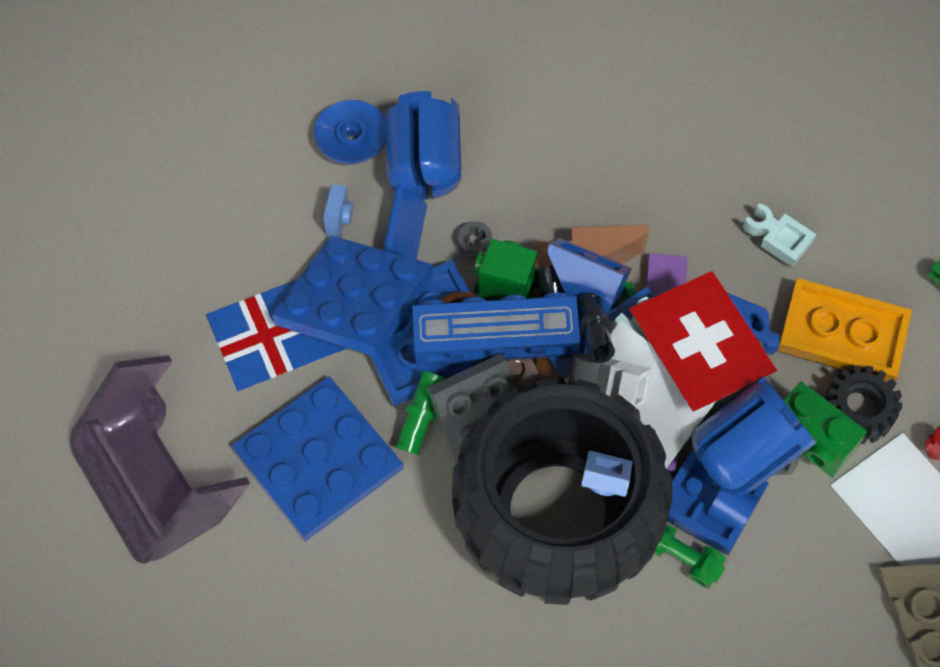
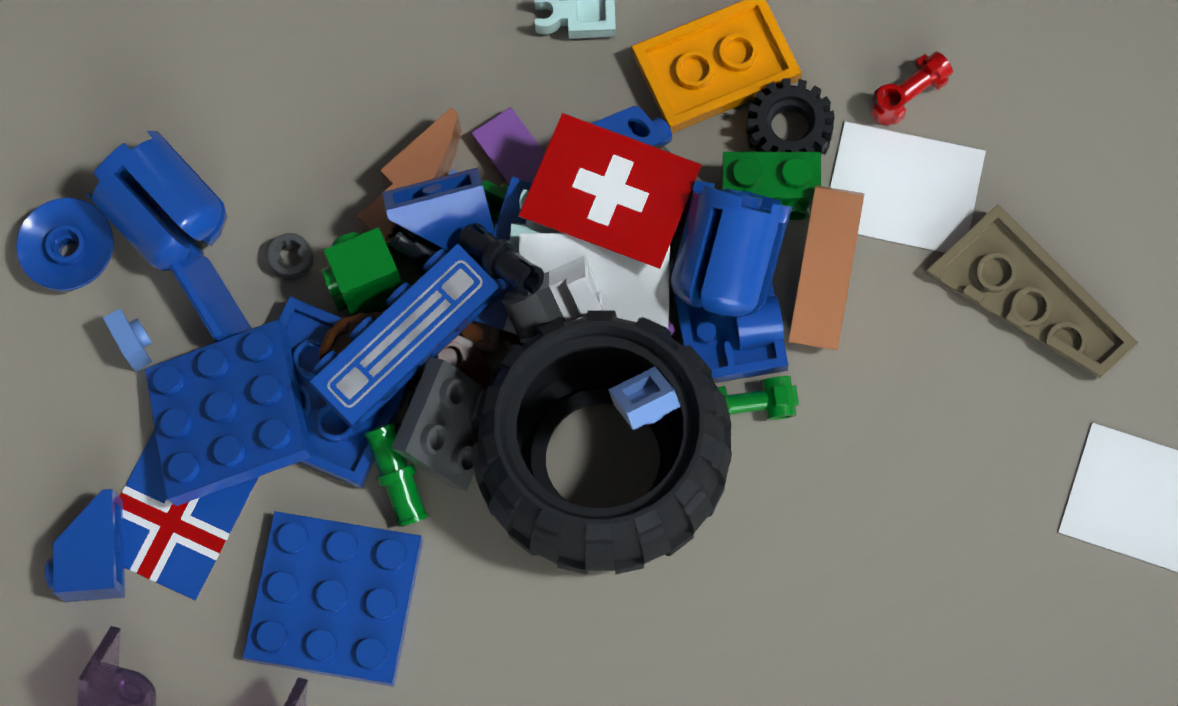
camera: 35 degrees left, 10 degrees up
(203, 311) = (90, 553): none -> blue slope
(809, 507) = (826, 267): none -> nougat slope

